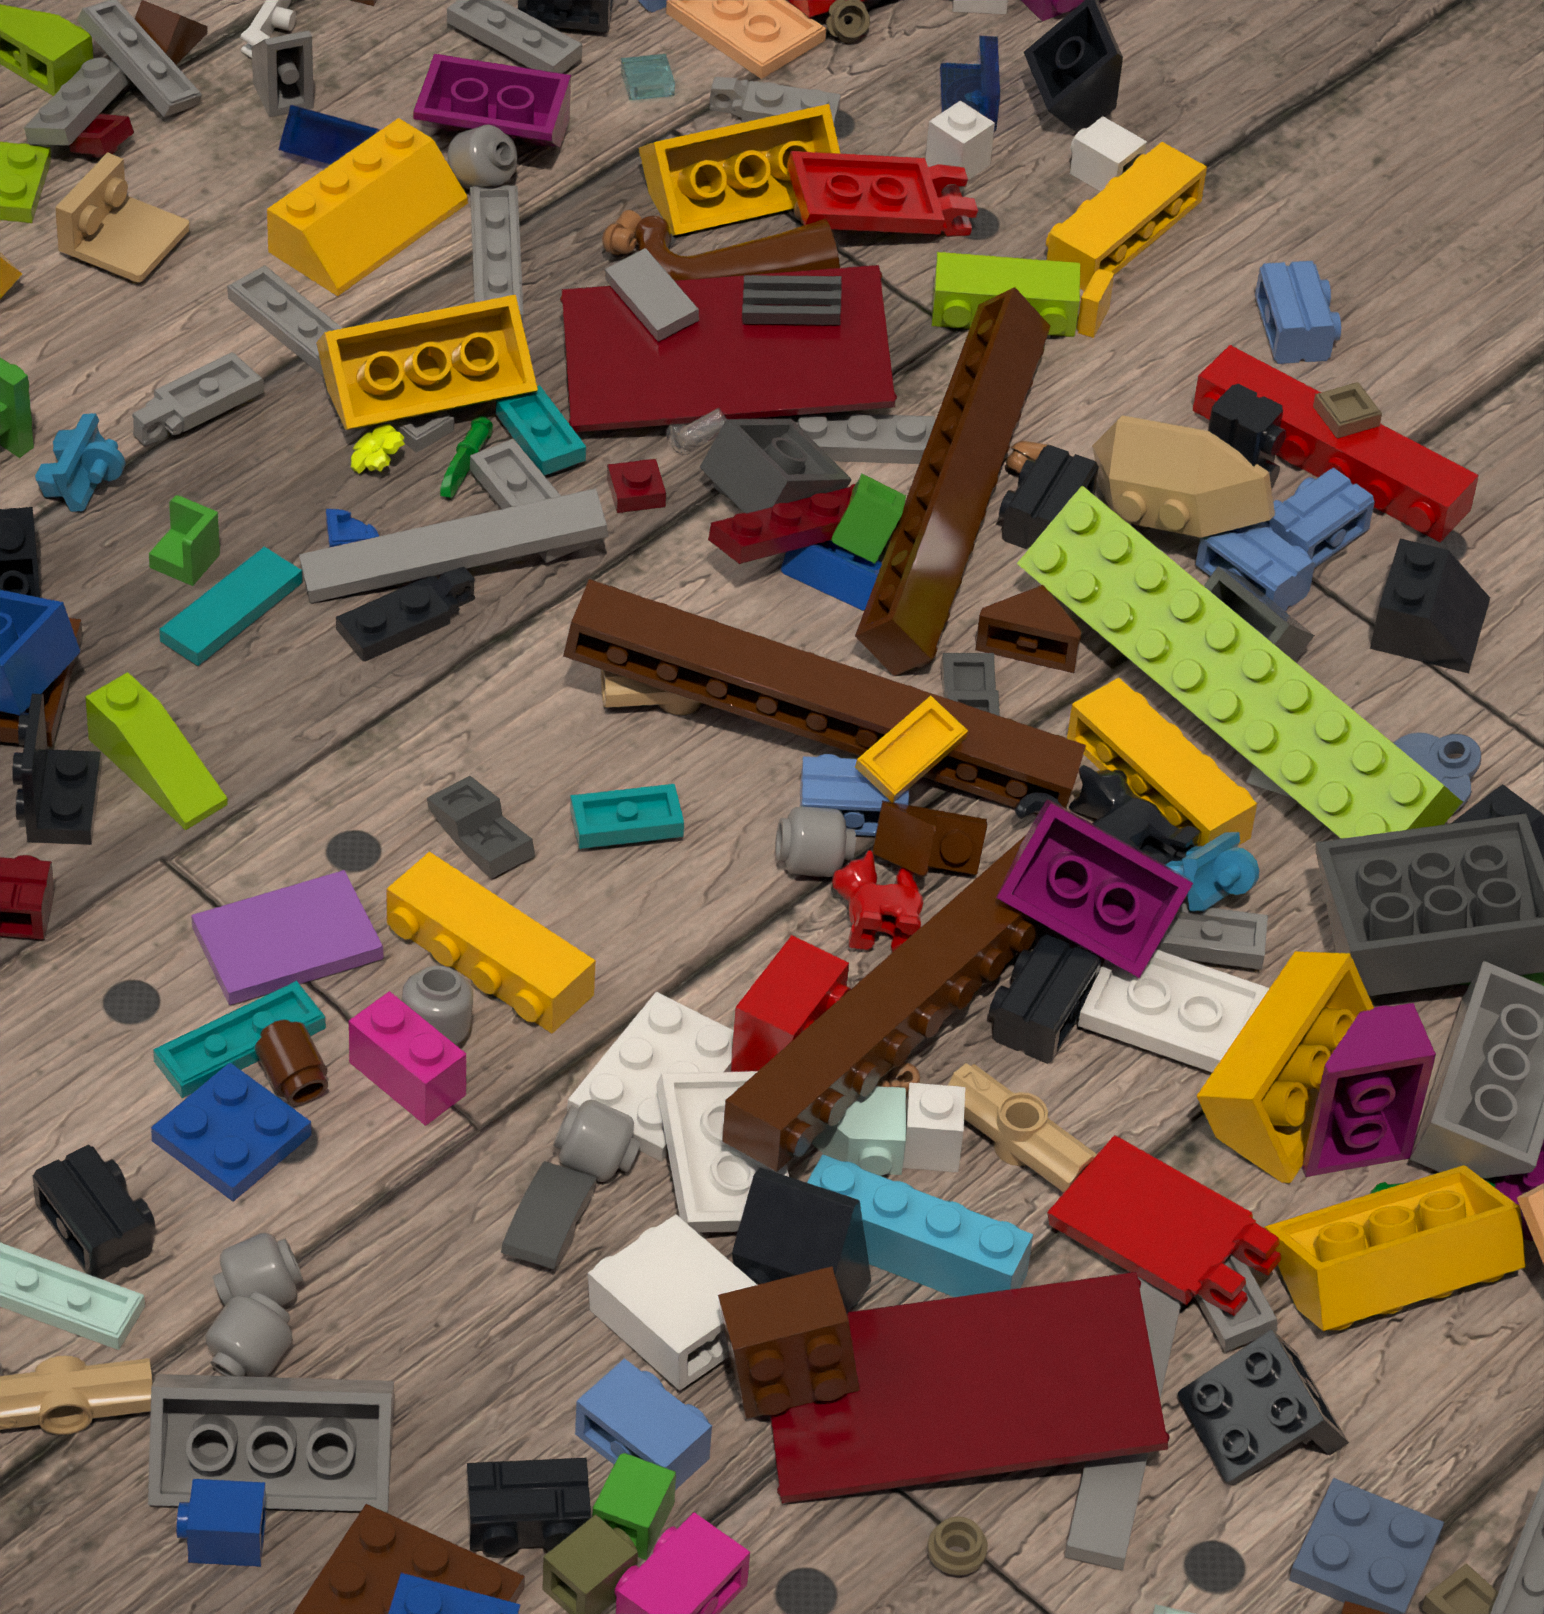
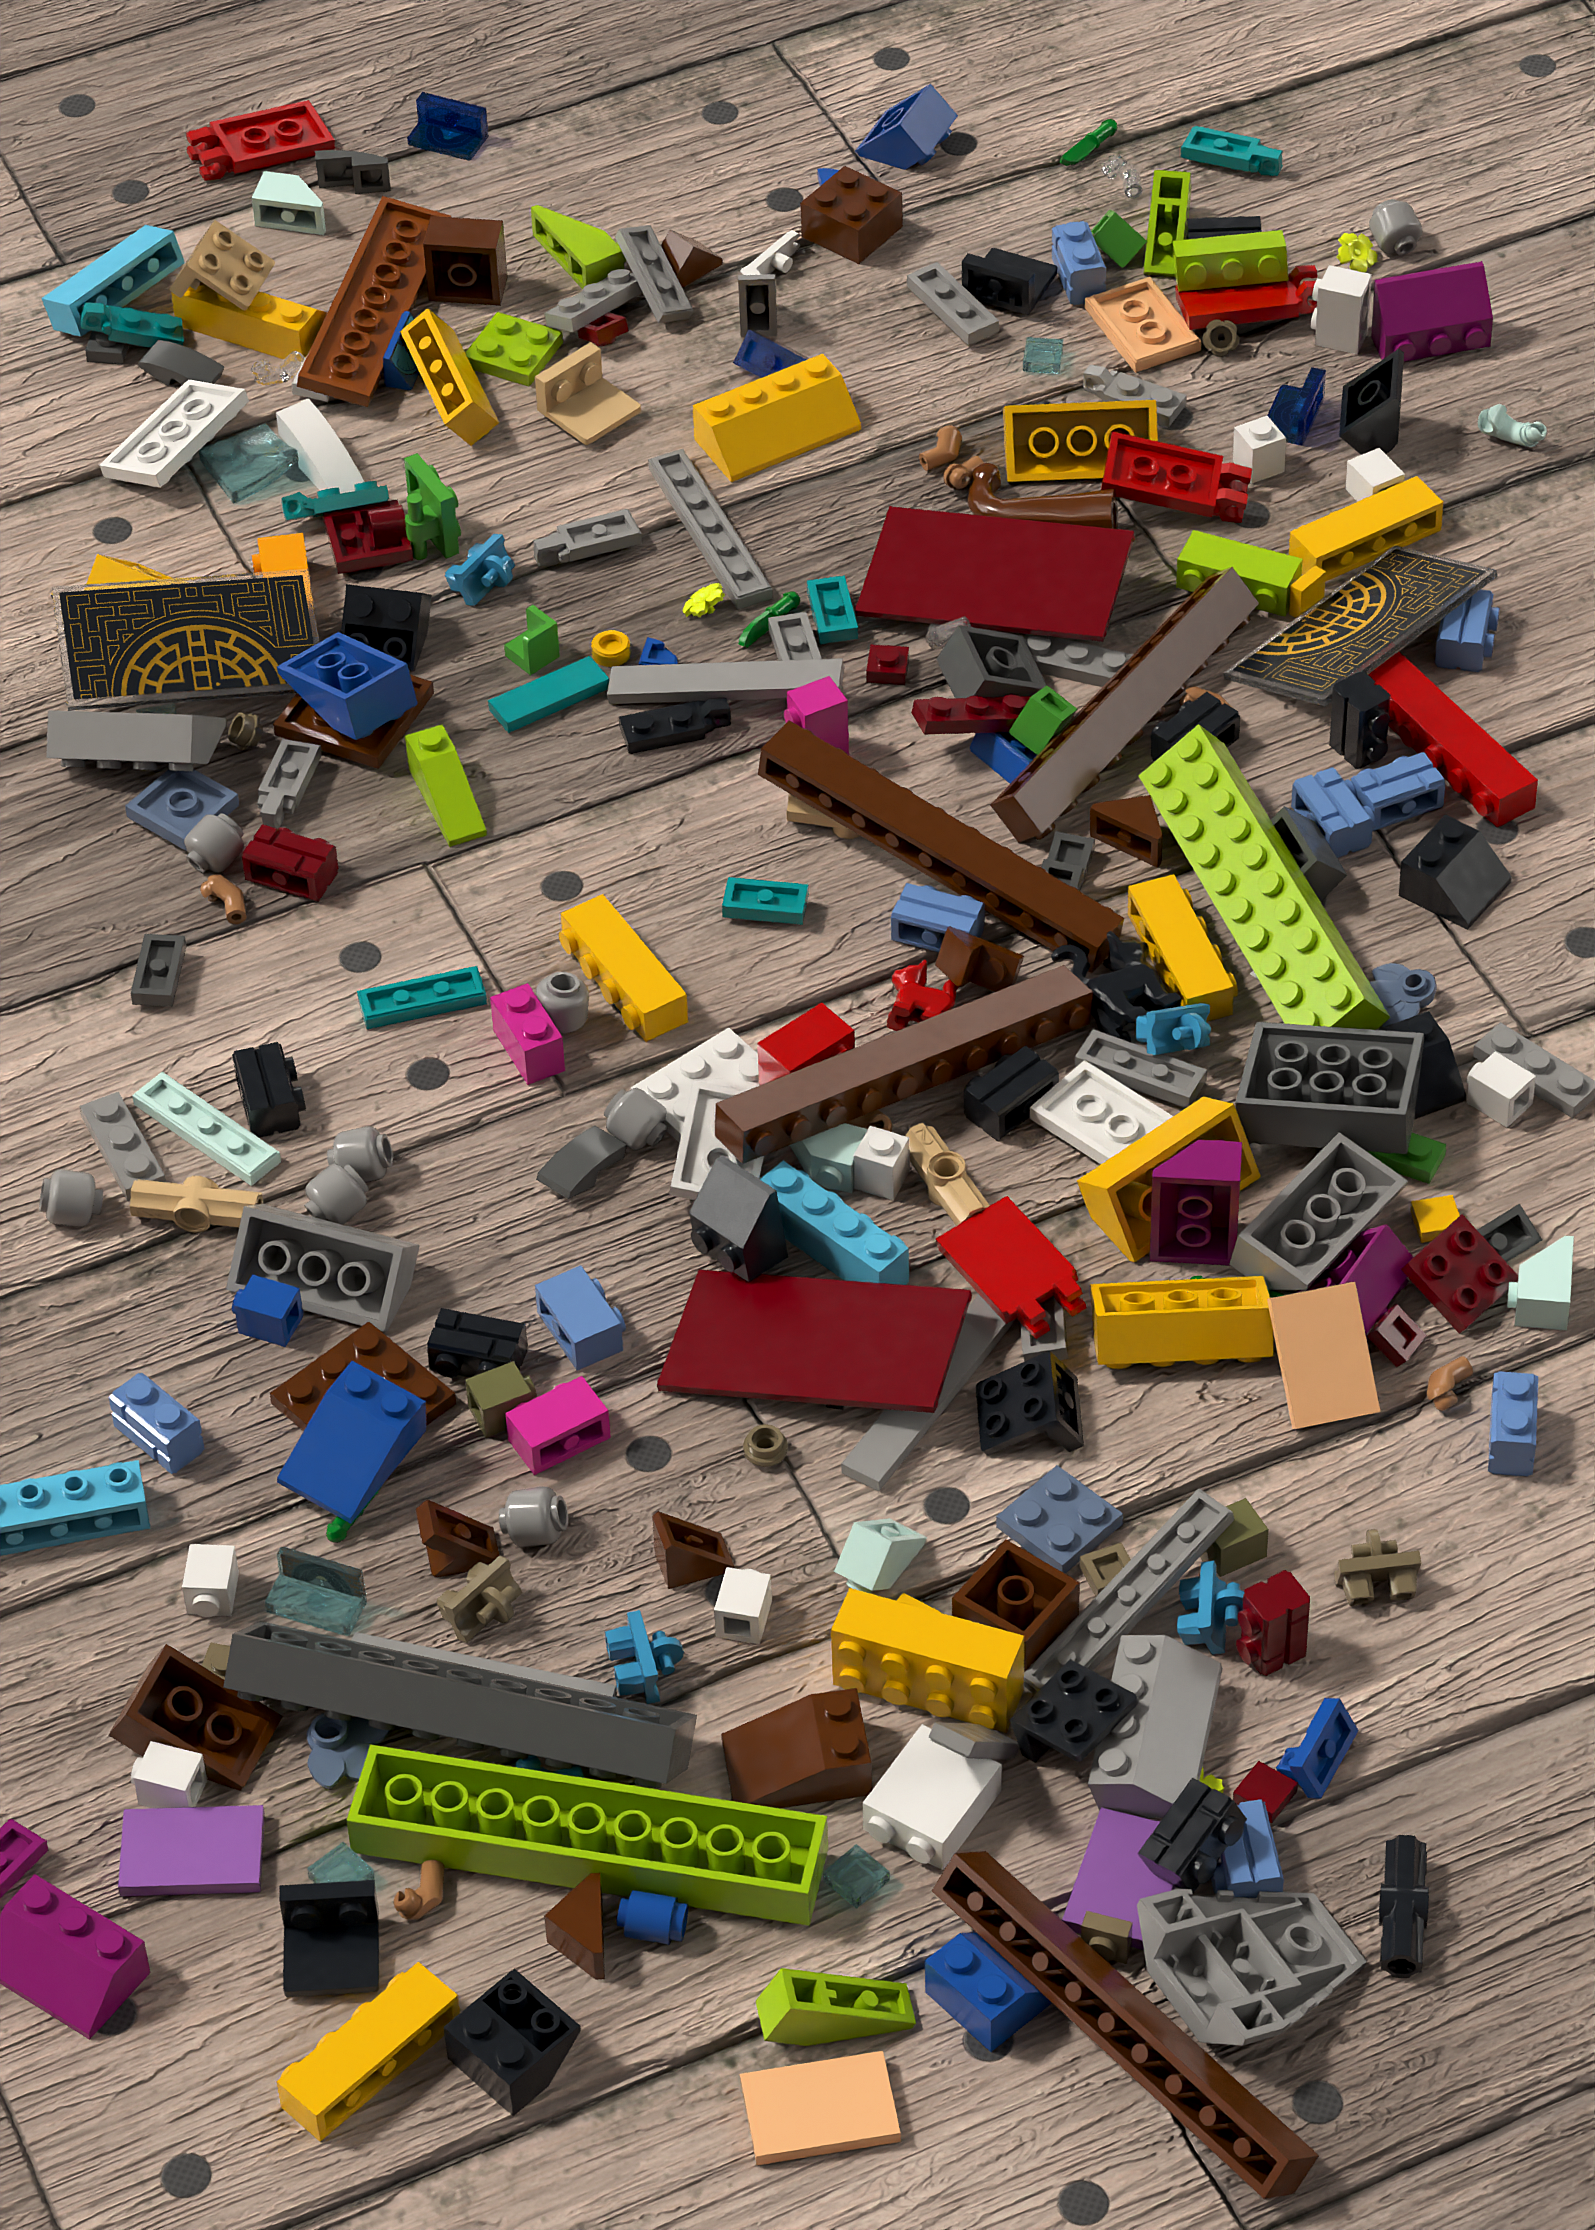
camera: 25 degrees right, 0 degrees up
(57, 785) = (363, 798): black bracket -> none
(231, 1131) = (388, 1058): blue plate -> none
(283, 531) = (610, 648): none -> yellow tile
(287, 937) = (485, 934): medium lavender tile -> none
(292, 1062) = (446, 1019): reddish brown brick -> none
(427, 362) = (761, 542): yellow slope -> none
(478, 828) = (657, 887): dark grey slope -> none
(482, 157) = (879, 395): light grey head -> none
(496, 243) = (862, 473): light grey tile -> none
(515, 99) = (906, 353): magenta slope -> none
(586, 208) = (946, 450): none -> medium nougat arm
(602, 553) = (821, 710): none -> dark pink brick
(637, 1500) = (550, 1360): bright green panel -> none
(652, 294) = (951, 522): light grey tile -> none
(666, 1300) = (641, 1238): white brick -> none
(789, 1342) = (696, 1279): reddish brown brick -> none
(792, 293) = (1056, 540): dark grey tile -> none
(814, 841) = (891, 945): light grey head -> none
(911, 749) = (982, 892): yellow tile -> none
(1093, 888) = (1068, 1017): magenta slope -> none
(1179, 479) = (1289, 737): tan wedge -> none
(1180, 328) = (1360, 624): none -> black piece
(1215, 68) = (1500, 425): none -> light aqua piece
(1347, 410) = (1455, 710): dark tan tile -> none

